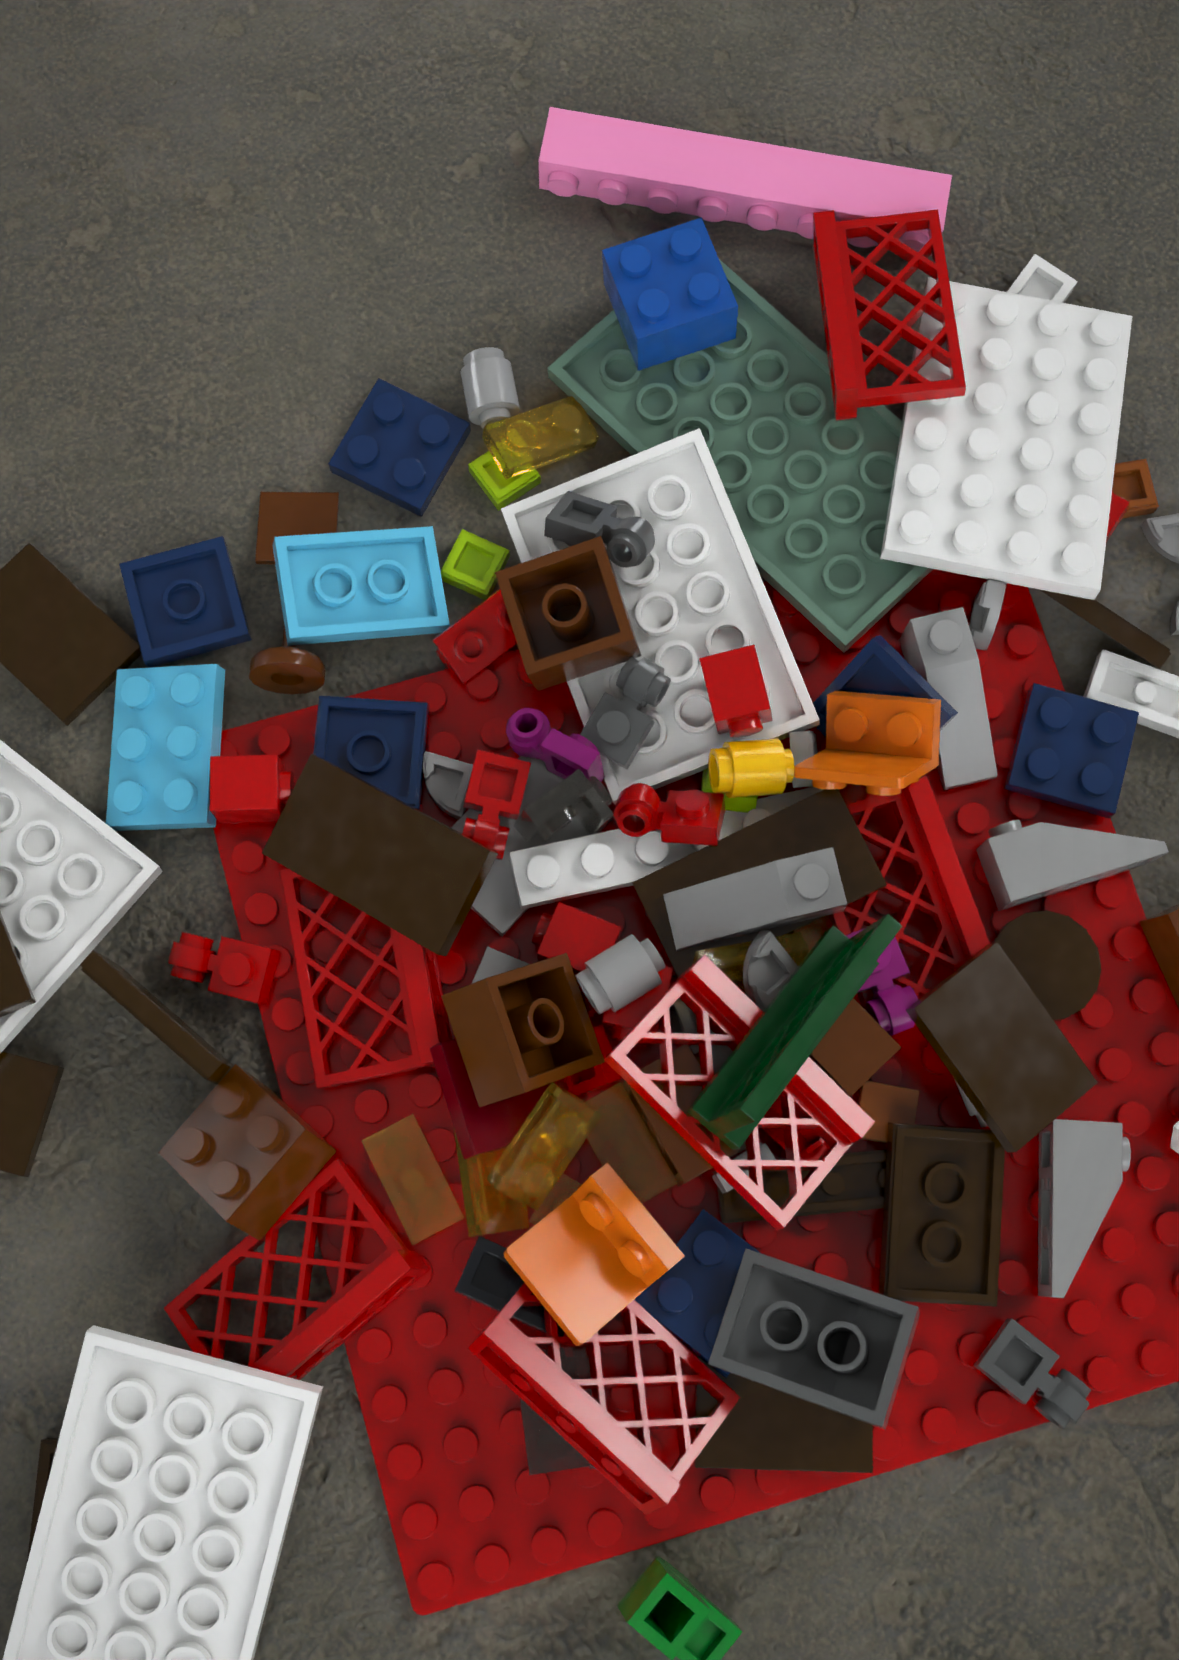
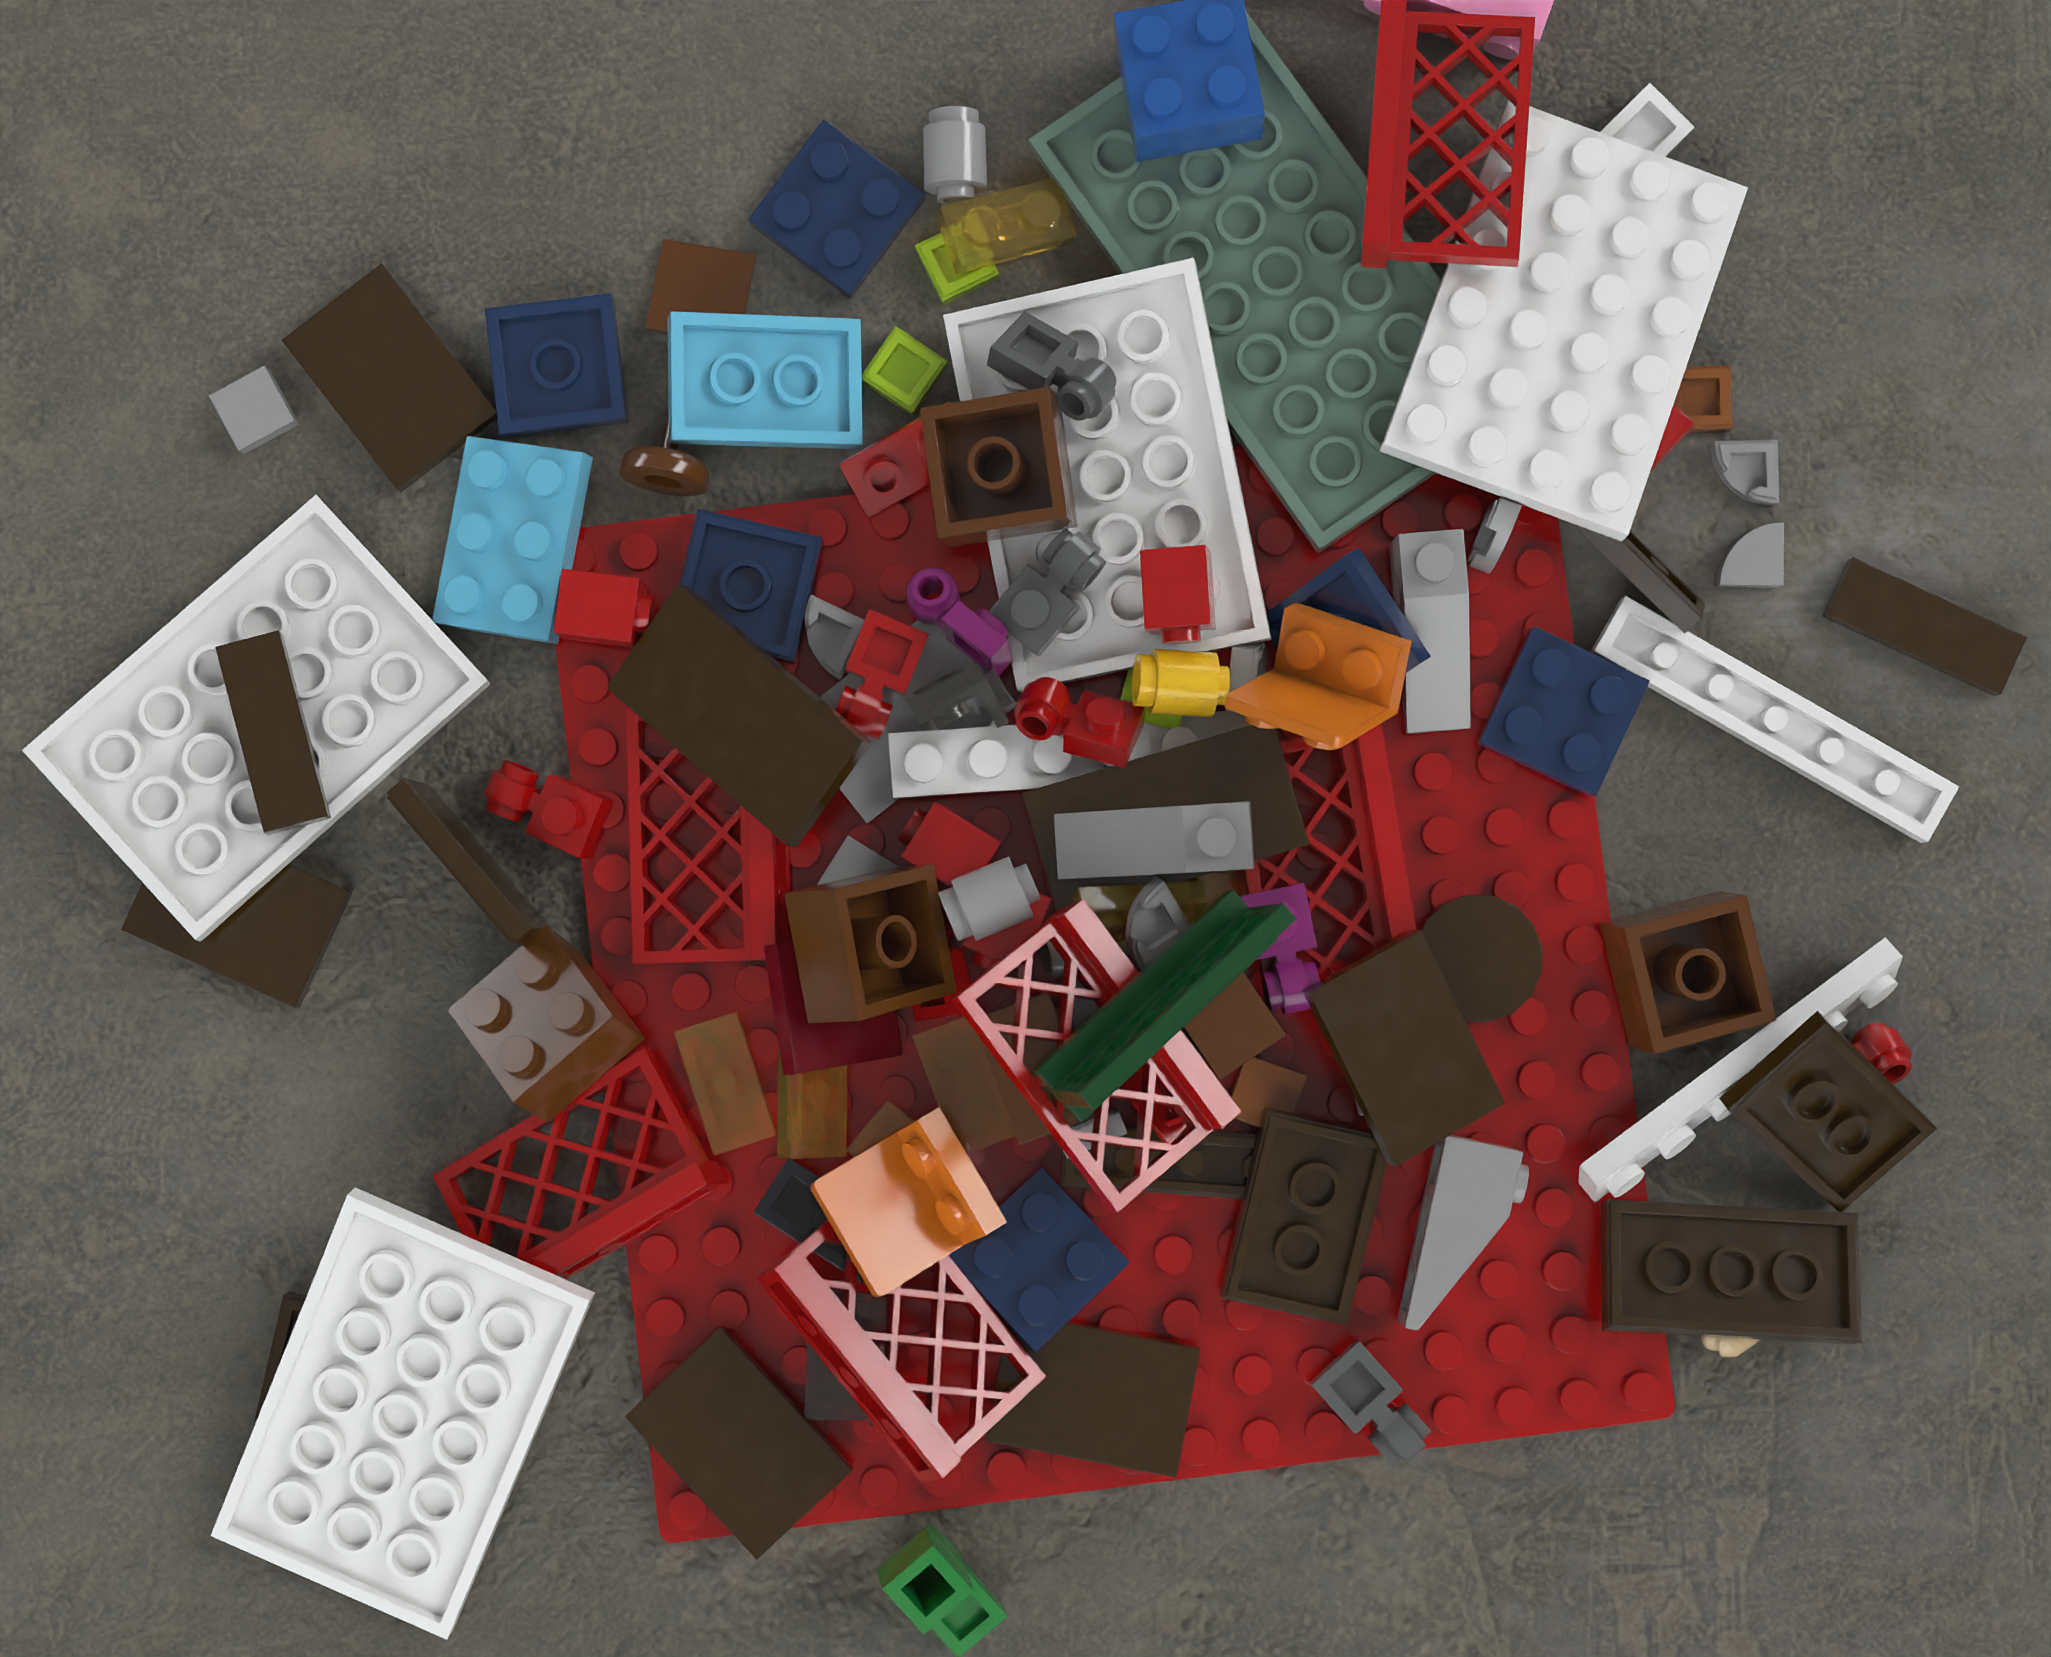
camera: 10 degrees right, 10 degrees up
(473, 1508) = (739, 1442): none -> dark brown tile
(544, 1146) = (875, 1074): clear yellow plate -> none
(815, 1338) = (1136, 1330): dark grey slope -> none
(1053, 858) = (1509, 838): light grey slope -> none

